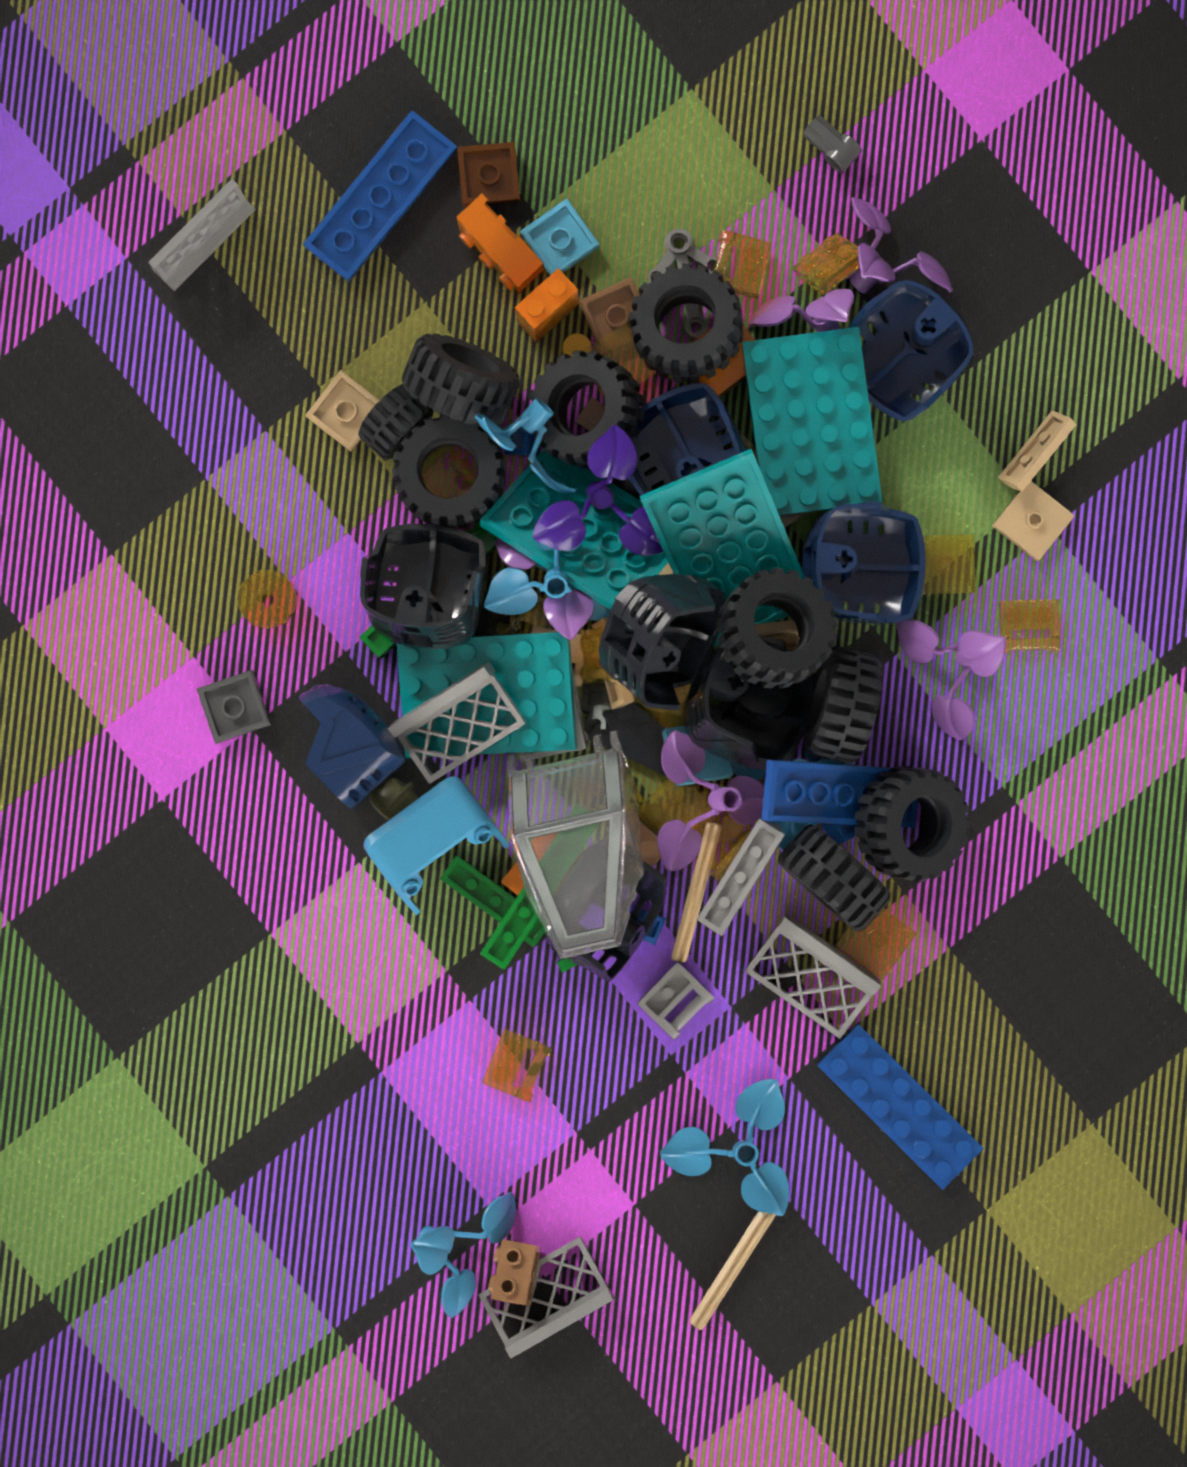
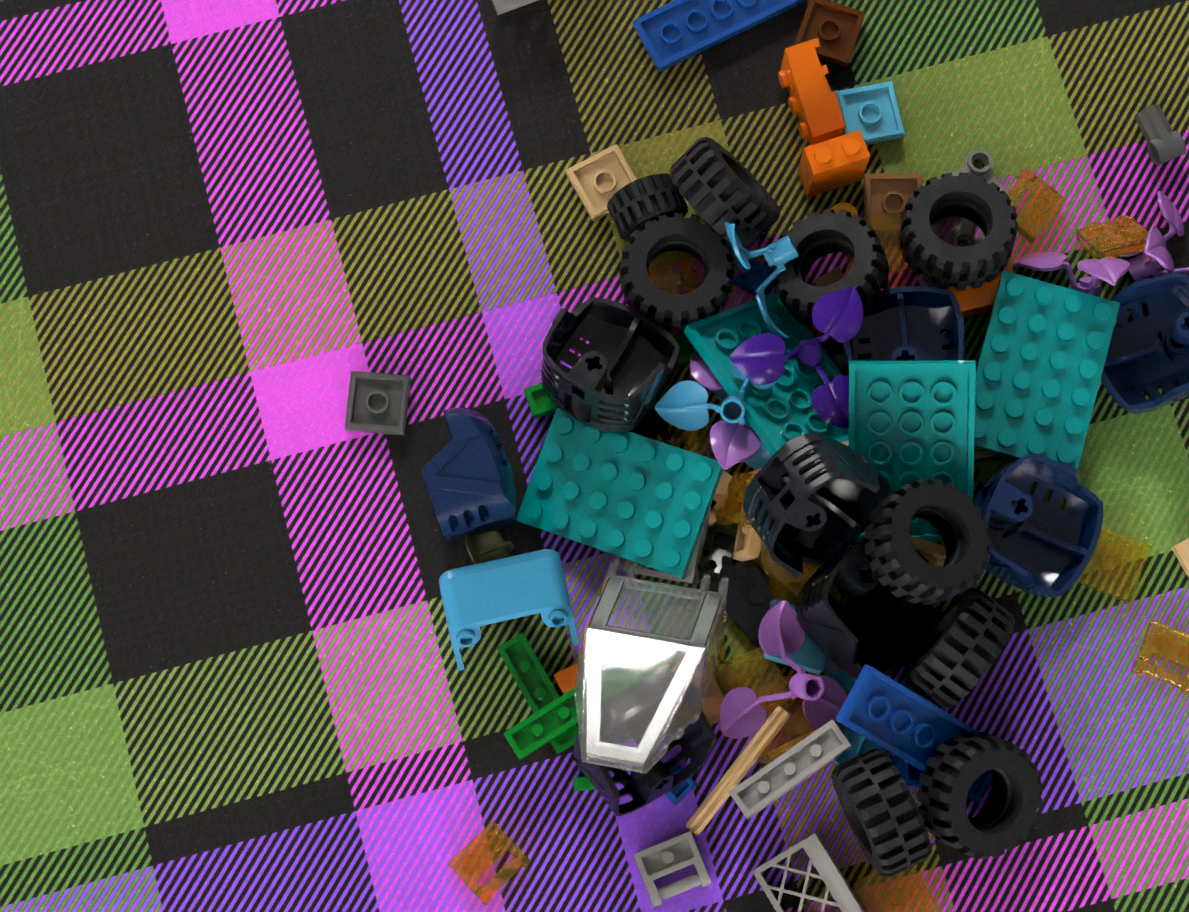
camera: 25 degrees right, 10 degrees down
(256, 586) = (439, 325): clear yellow plate -> none
(444, 701) = (574, 479): light grey fence -> none
(975, 651) = (1114, 655): medium lavender plant -> none

